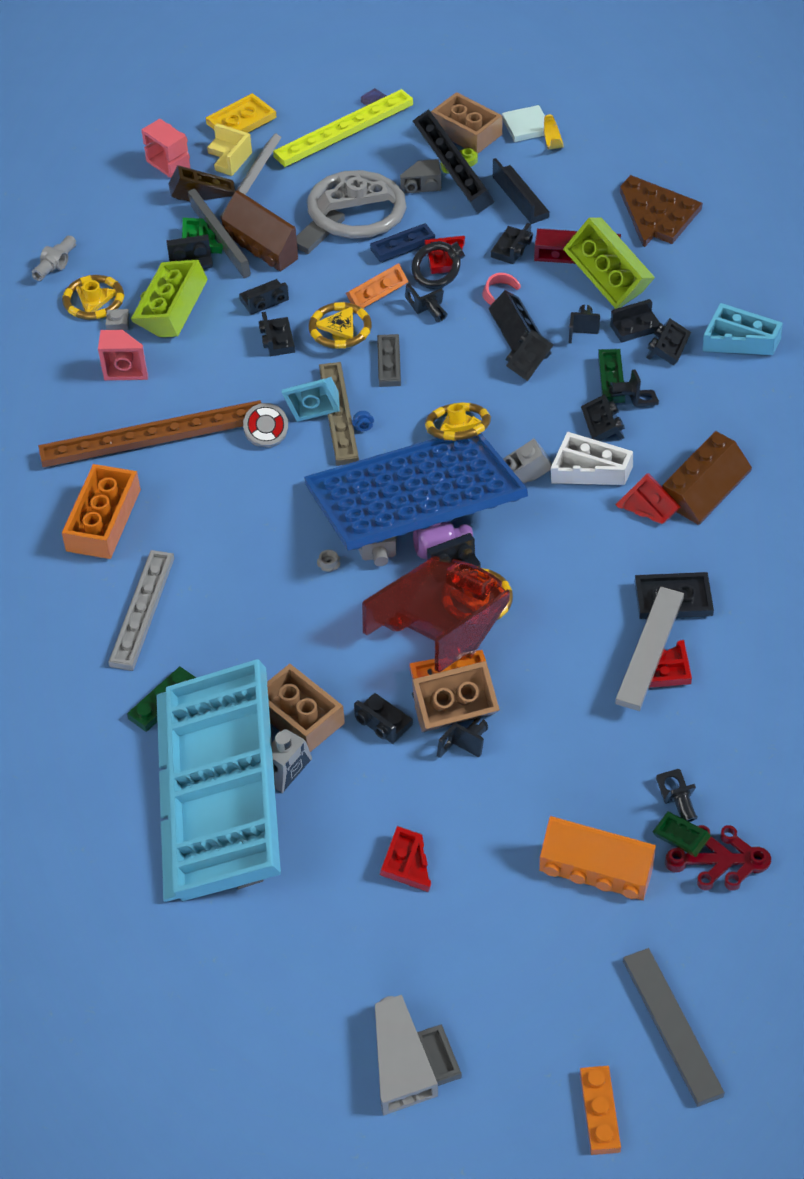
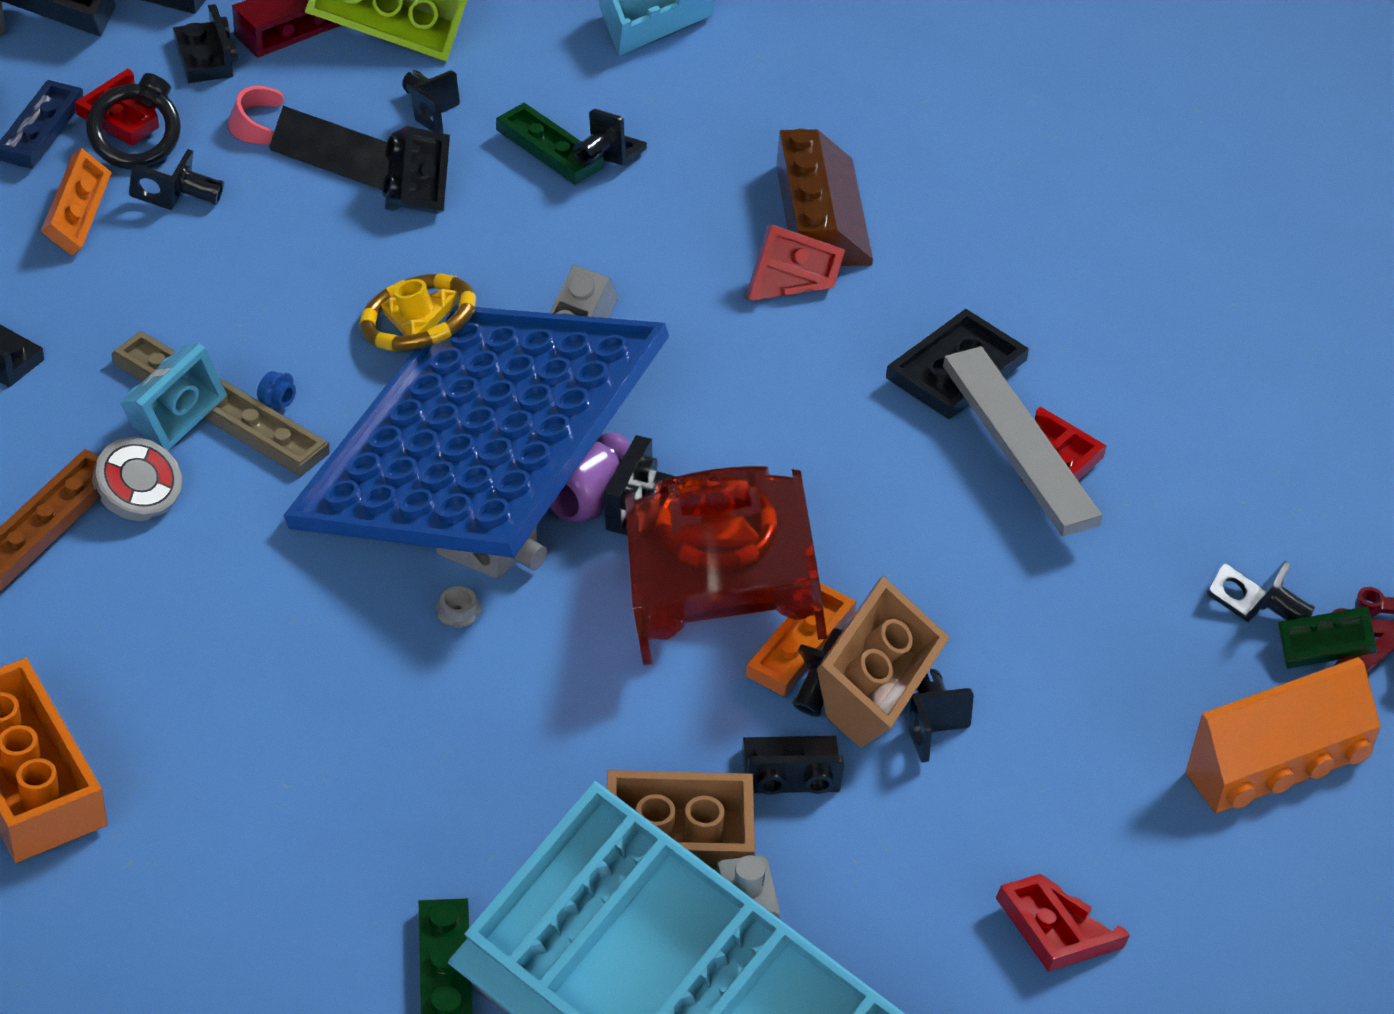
camera: 50 degrees left, 5 degrees down
(141, 610) = (253, 867): light grey tile -> none
(339, 325) = (86, 279): piece -> none
(389, 360) = (208, 291): dark grey tile -> none
(590, 462) = (665, 259): white wedge -> none
(602, 418) = (605, 201): black bracket -> none
(634, 321) = (494, 62): black bracket -> none
(669, 341) = (570, 62): black bracket -> none

